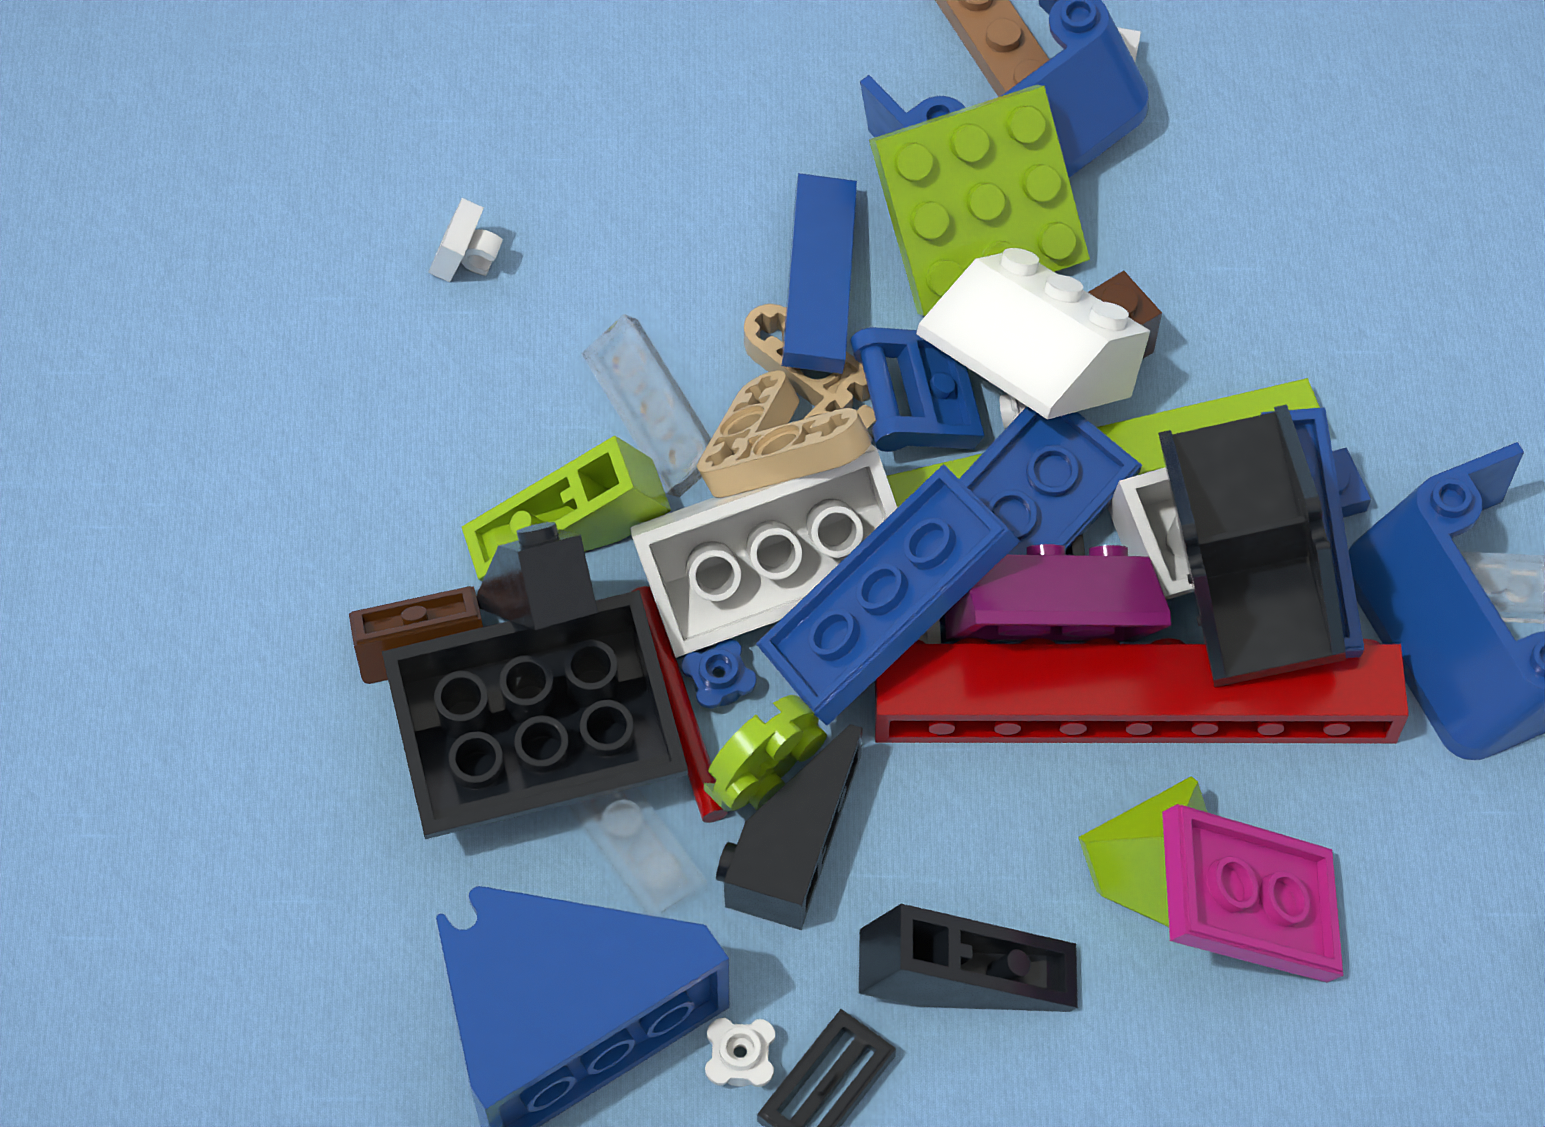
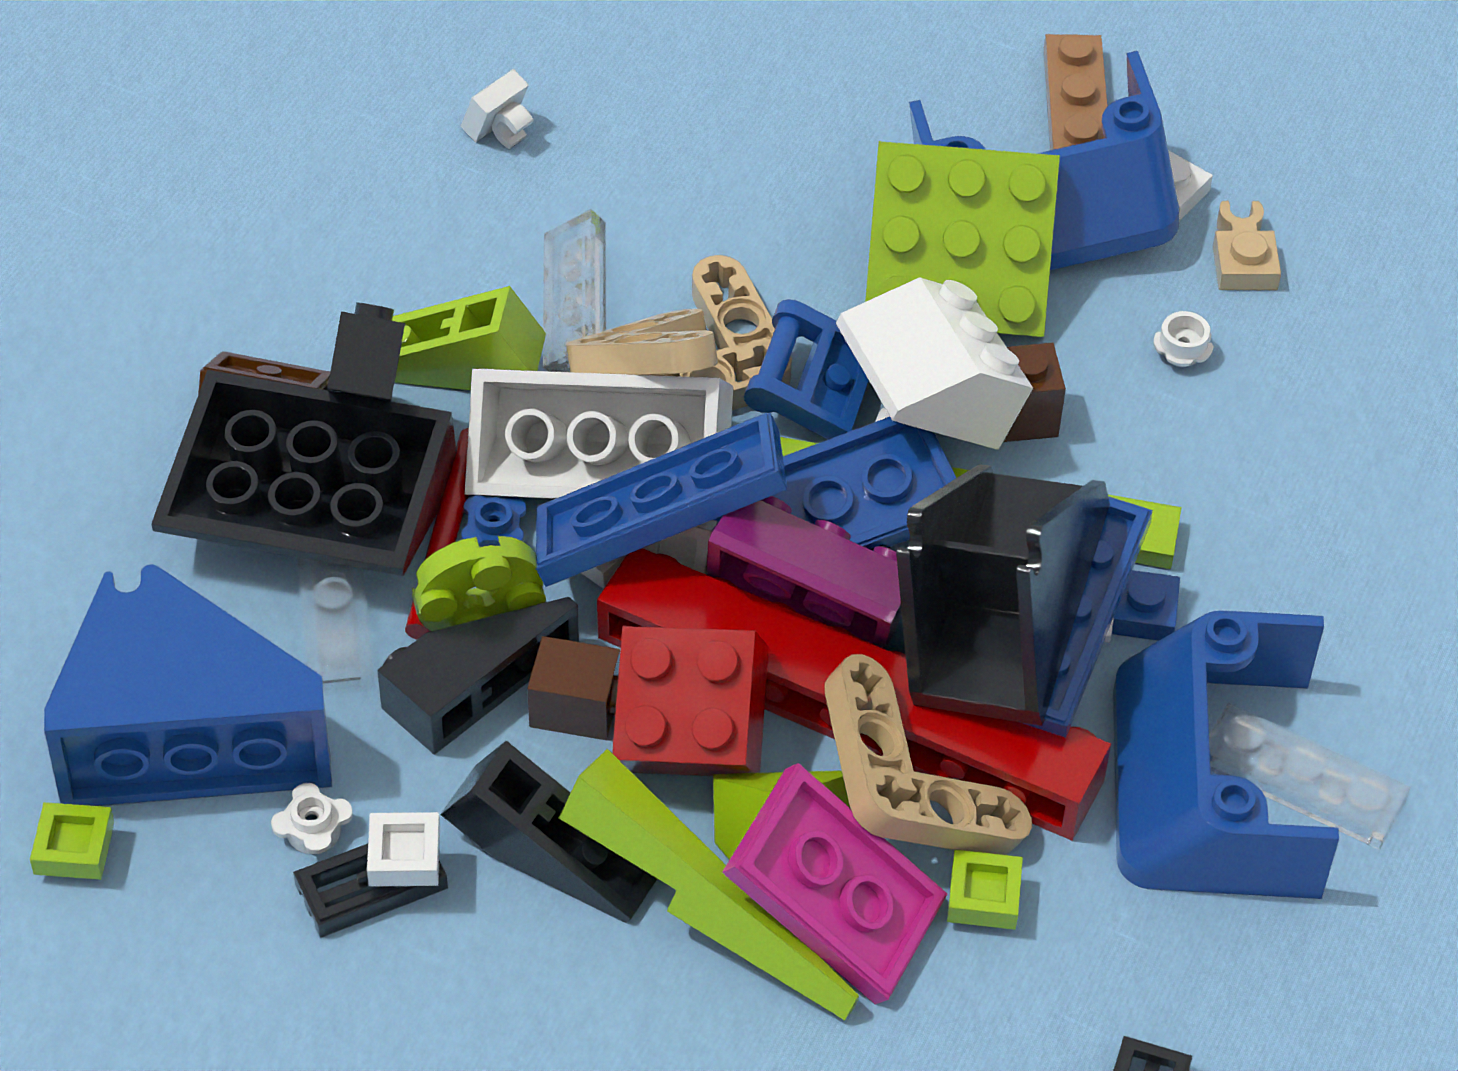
camera: 25 degrees right, 10 degrees down
(819, 274) = (788, 250): blue tile -> none
(854, 1047) = (403, 849): none -> white plate
(900, 807) = (573, 688): none -> reddish brown brick
(1027, 780) = (690, 701): none -> red brick
(1050, 925) = (631, 821): none -> lime wedge
(1175, 700) = (887, 792): none -> tan beam
(1207, 98) = (1243, 253): none -> tan plate
(1213, 197) = (1184, 339): none -> white plate
(1363, 830) = (985, 889): none -> lime plate

